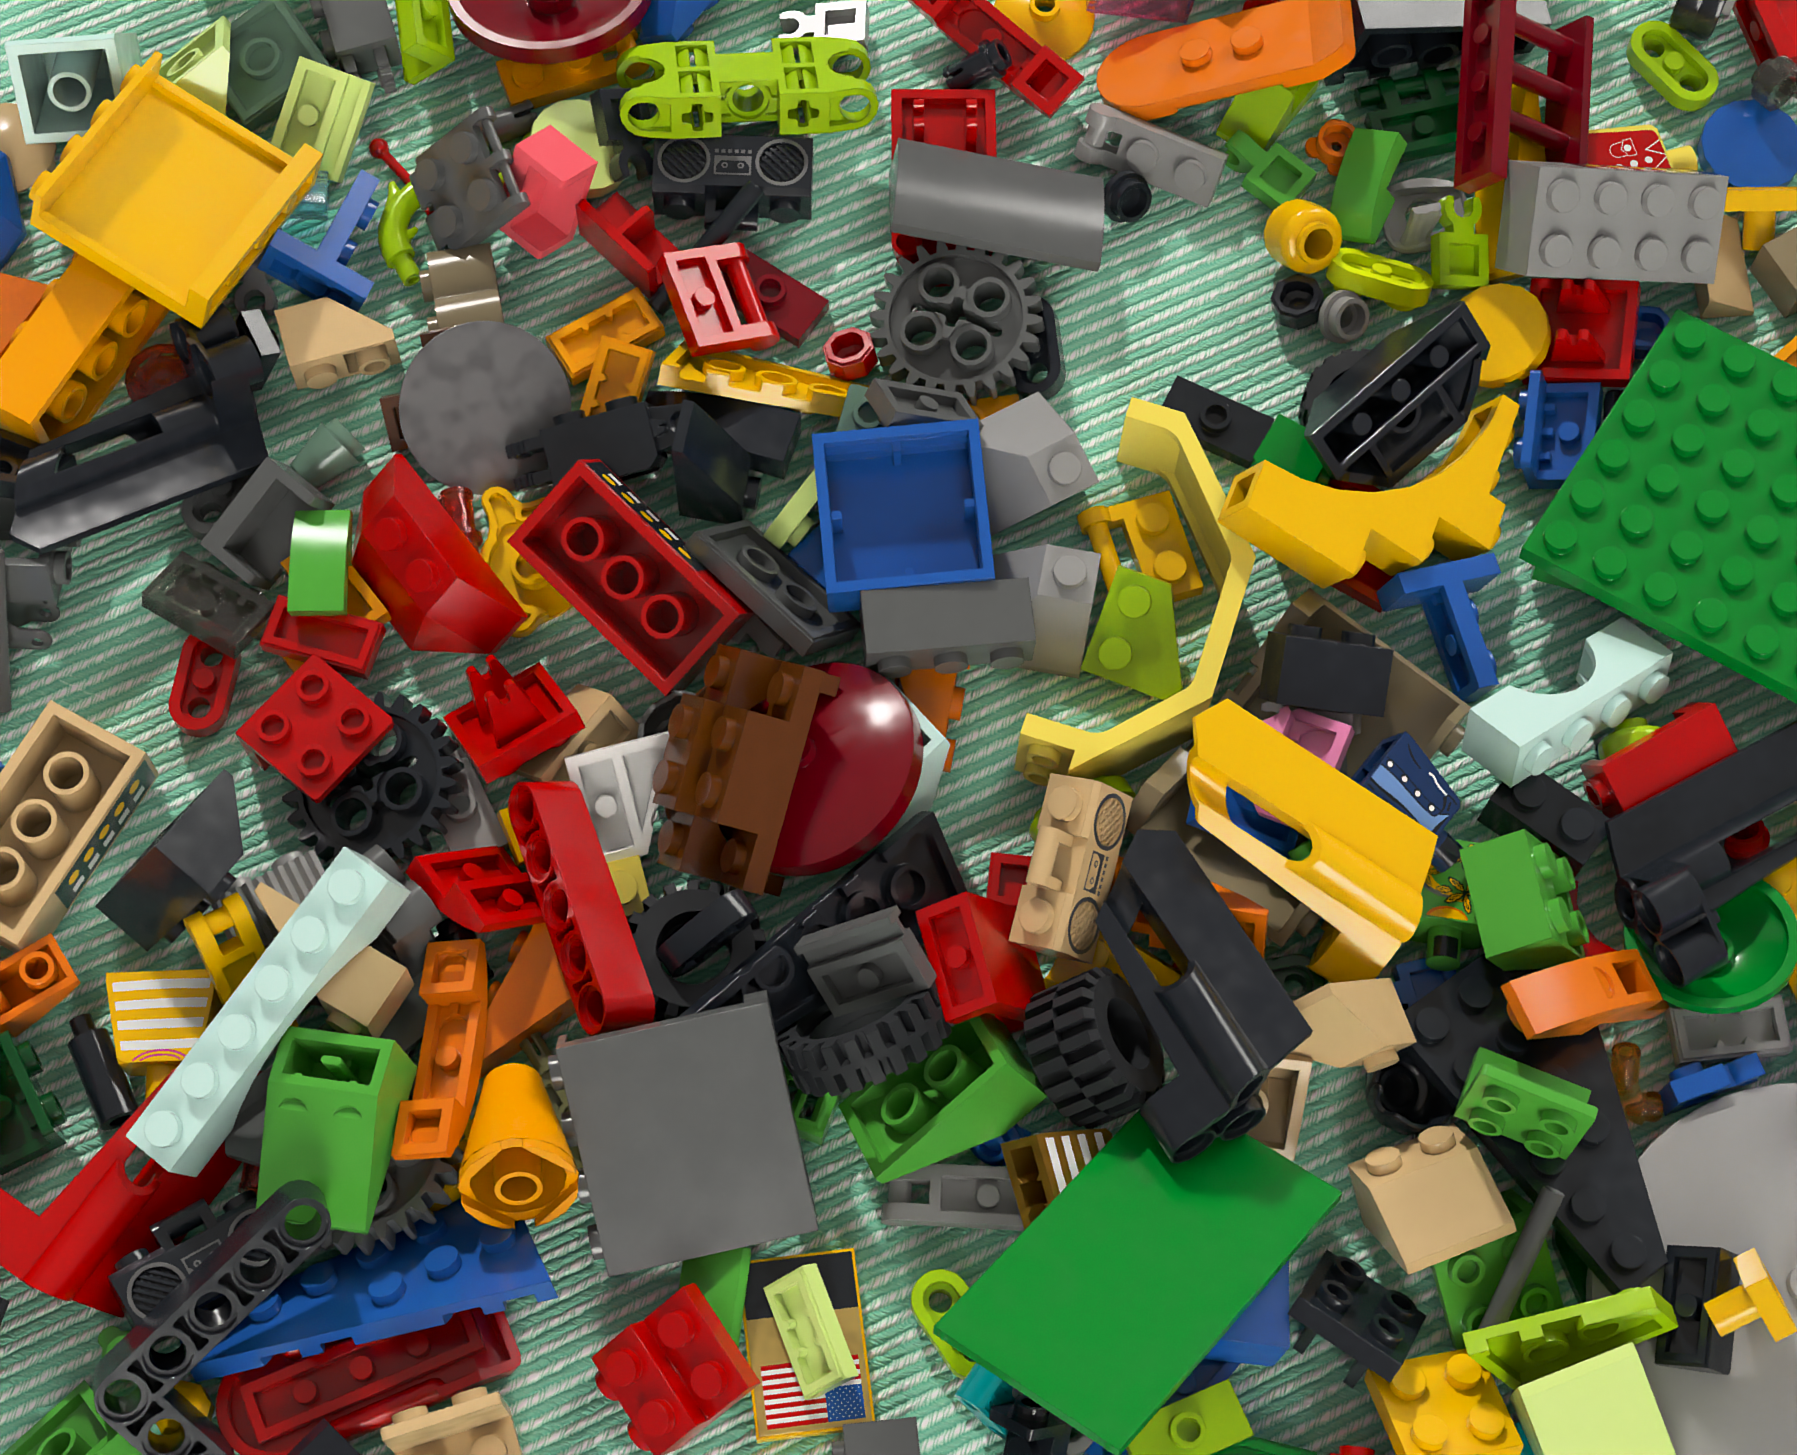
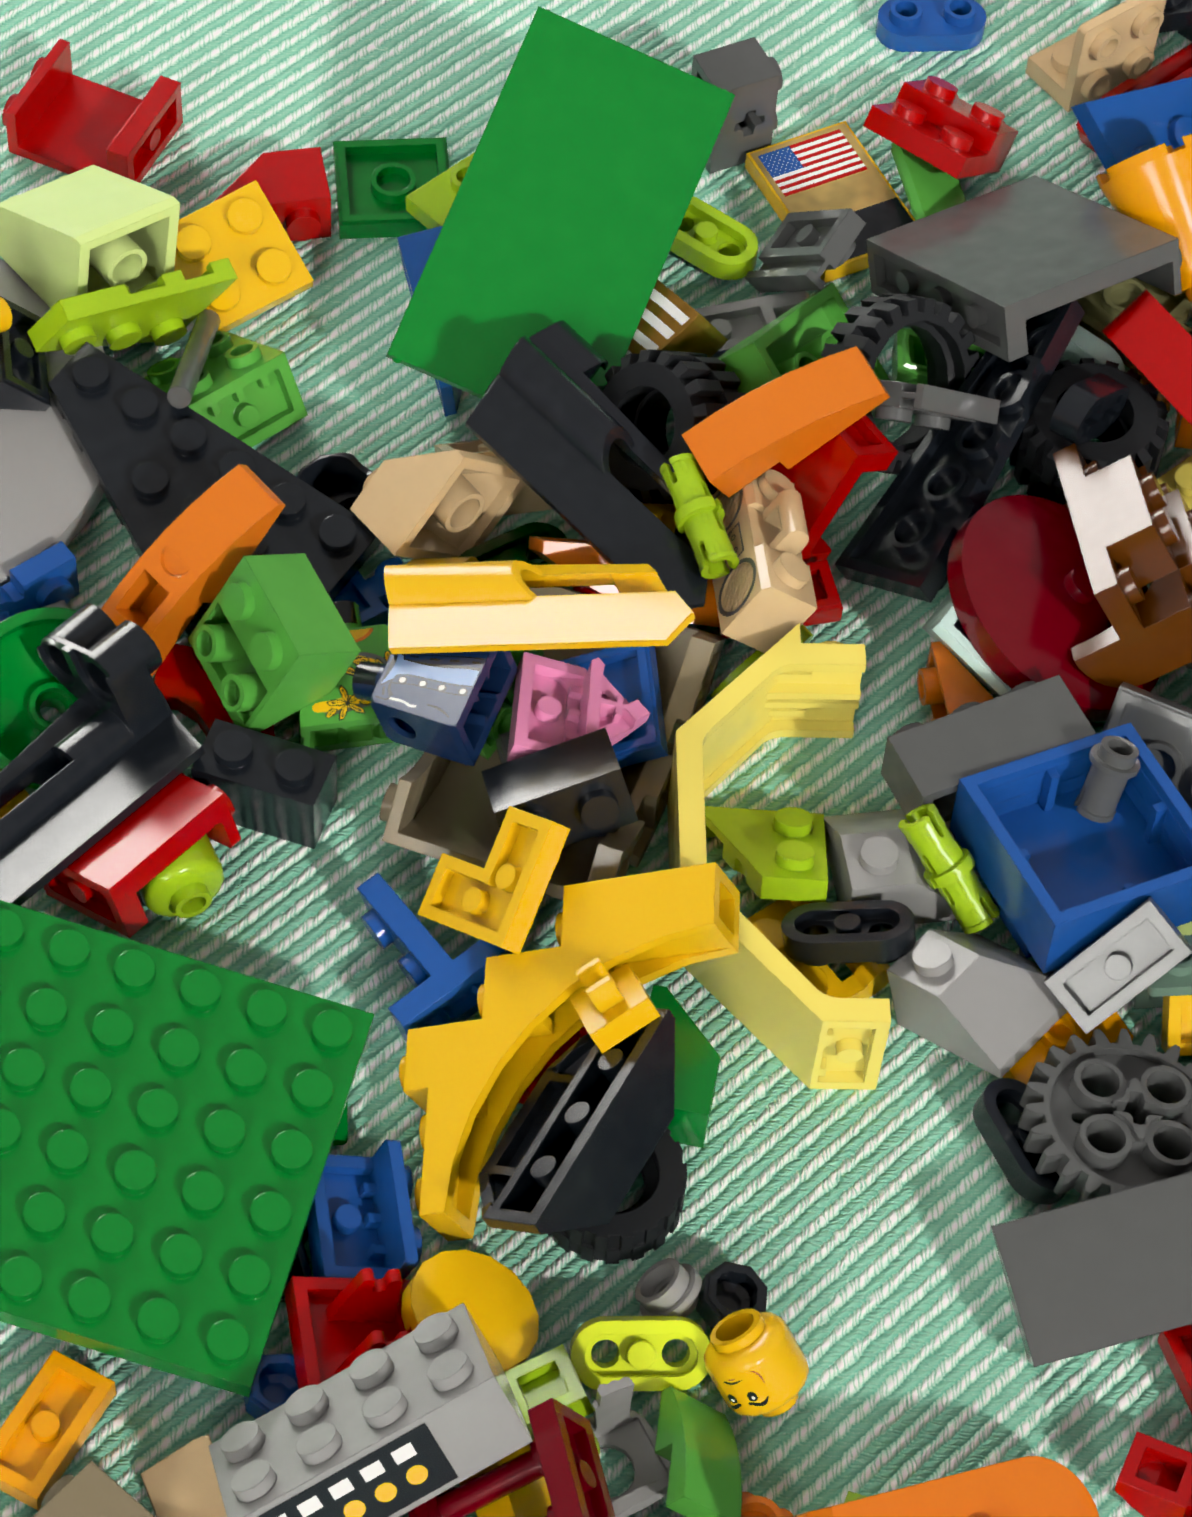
camera: 160 degrees right, 15 degrees down
(810, 1331) = (835, 181): yellowish green plate -> none
(867, 537) = (1112, 765): none -> dark grey pin
(880, 1240) = (805, 248): none -> dark grey plate
(1019, 548) = (949, 868): none -> lime pin
(1022, 938) = (784, 419): none -> orange slope
(1115, 524) = (848, 932): none -> black plate
(1122, 894) = (699, 516): none -> lime pin
(1126, 197) = (995, 1363): black plate -> none
(1153, 152) = (989, 1428): light grey plate -> none
(1220, 422) = (778, 1130): black plate -> none
(1271, 175) = (820, 1454): bright green plate -> none
(1346, 462) = (612, 1003): none -> yellow tile
(1357, 1317) = (337, 305): black plate -> none
(1404, 595) = (505, 895): none -> yellow plate
(1429, 1198) = (294, 394): tan slope -> none
(1525, 1105) = (222, 424): bright green bracket -> none
(1526, 731) = (322, 808): light aqua arch -> none
(1625, 1068) = (102, 568): clear orange arm -> none

